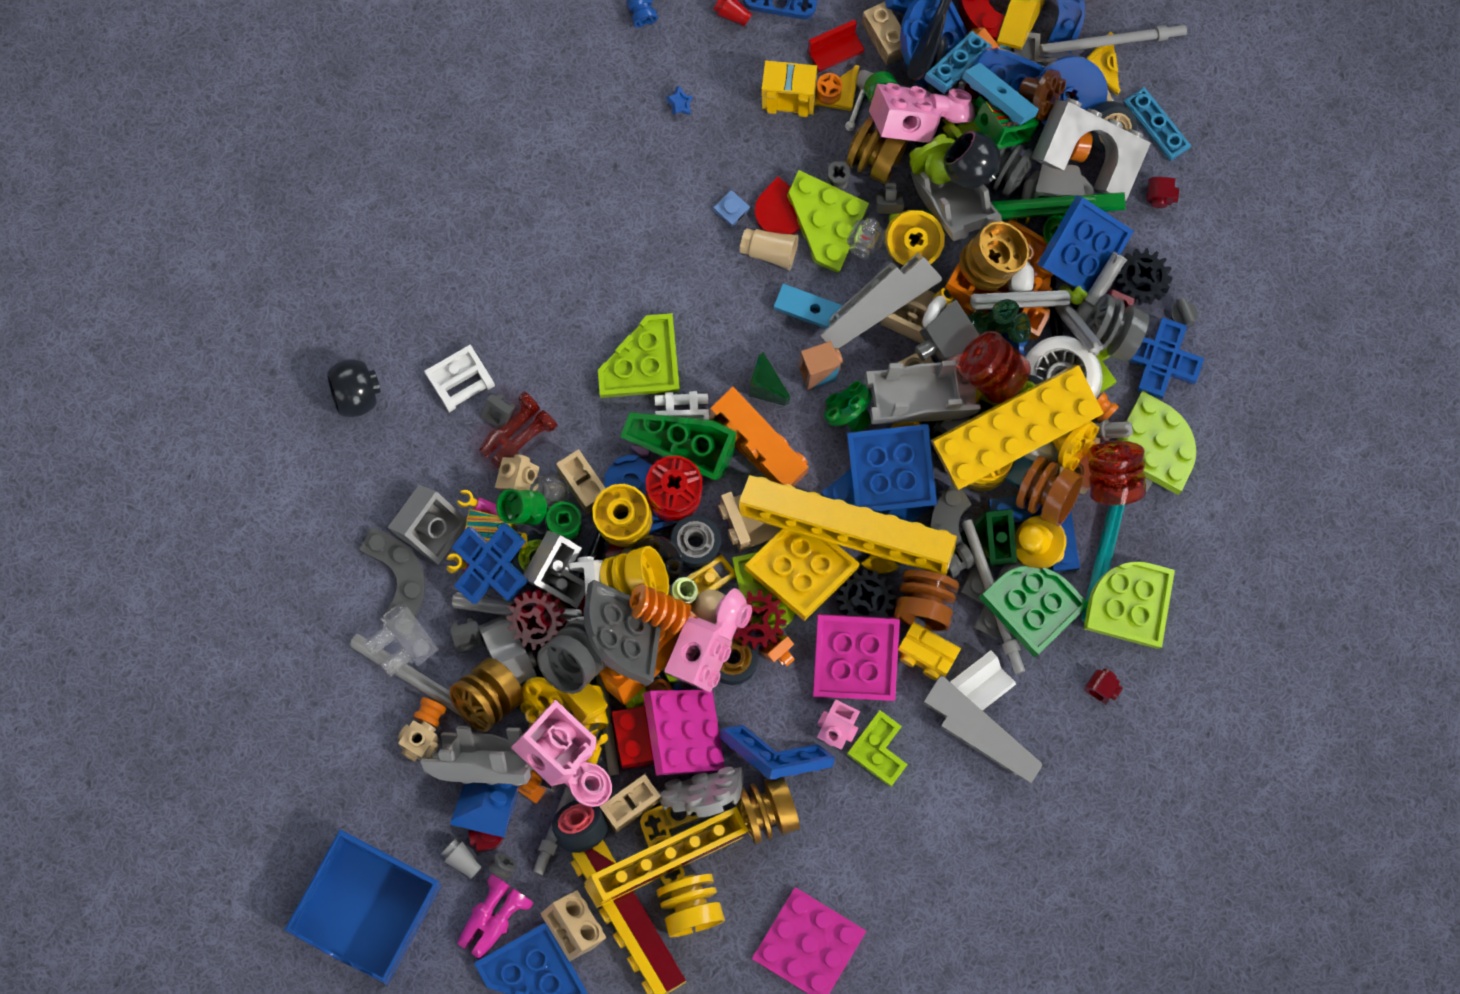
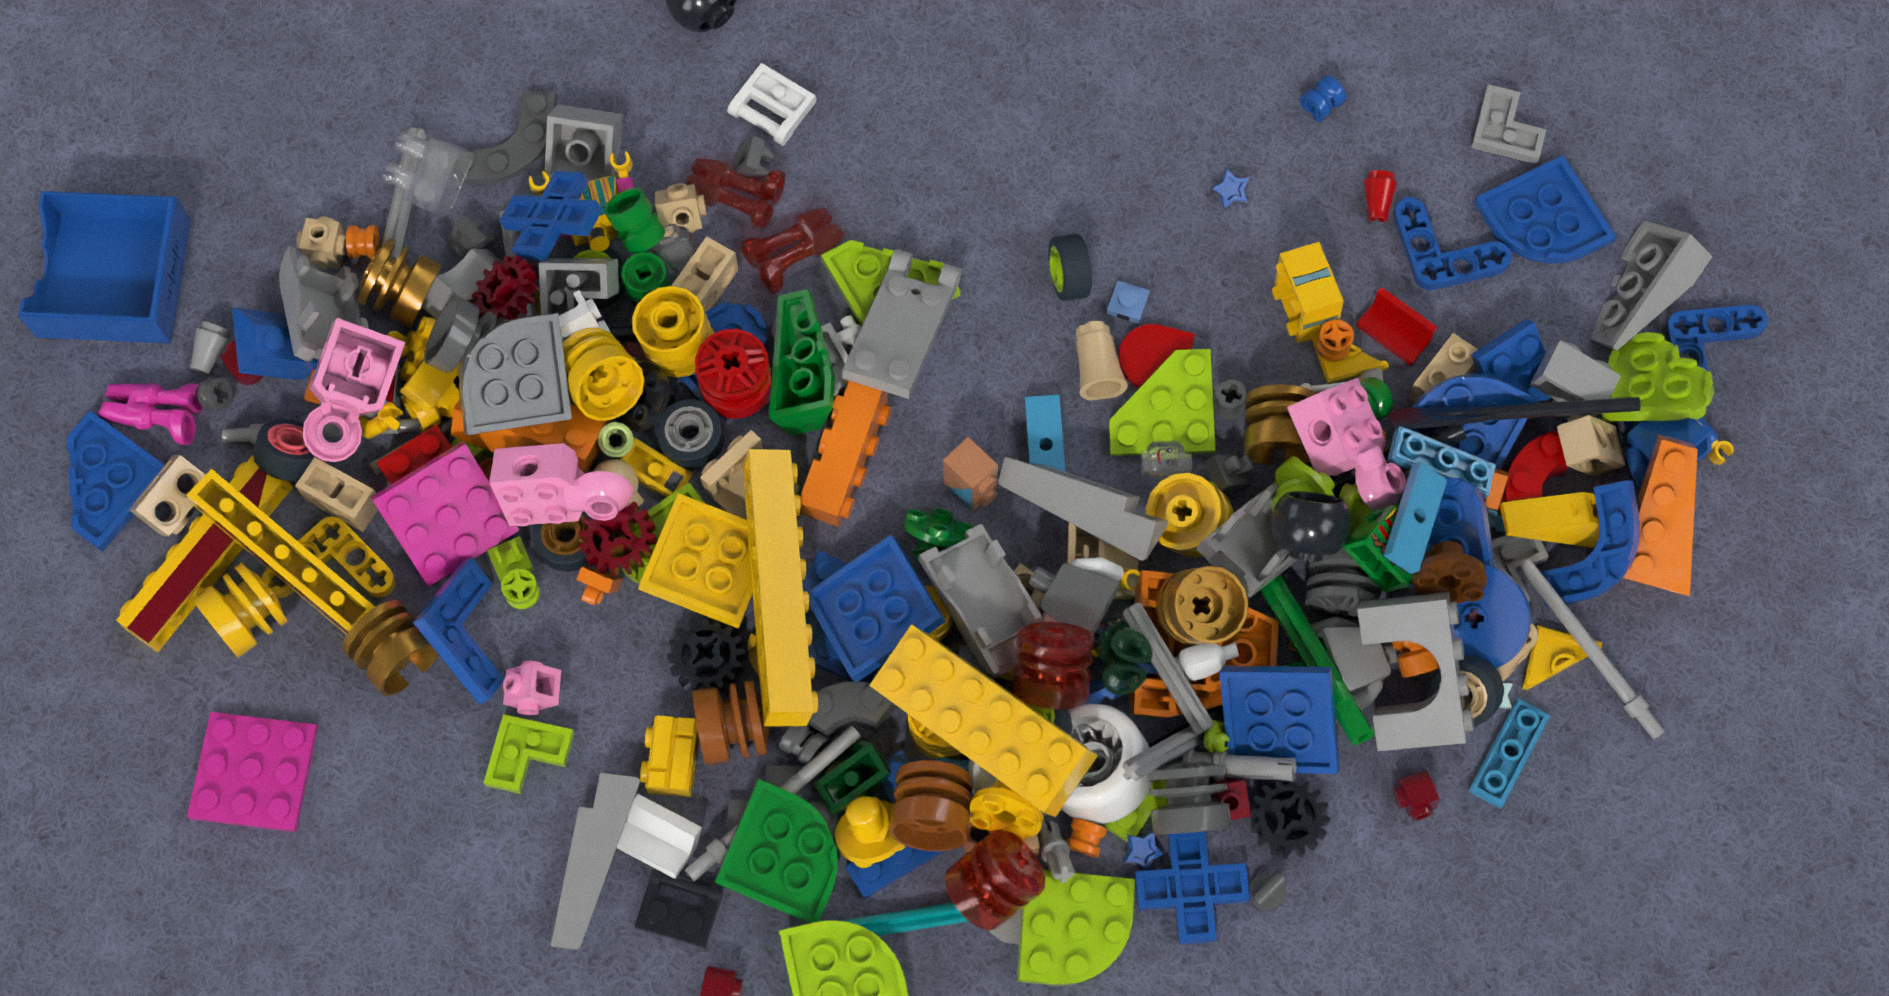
camera: 75 degrees right, 5 degrees down
(575, 437) = (806, 224): none -> clear red piece
(659, 608) = (559, 404): orange piece -> none
(693, 232) = (1070, 267): none -> black wheel
(693, 361) = (900, 328): none -> light grey hinge
(704, 792) = (378, 565): light grey plate -> none
(730, 705) = (509, 556): none -> lime tile
(758, 700) = (517, 581): none -> lime wheel
(766, 383) = (925, 425): dark green slope -> none
(856, 657) = (625, 673): dark pink plate -> none
(1040, 696) = (676, 918): none -> black plate
(1124, 377) = (1142, 850): none -> blue piece

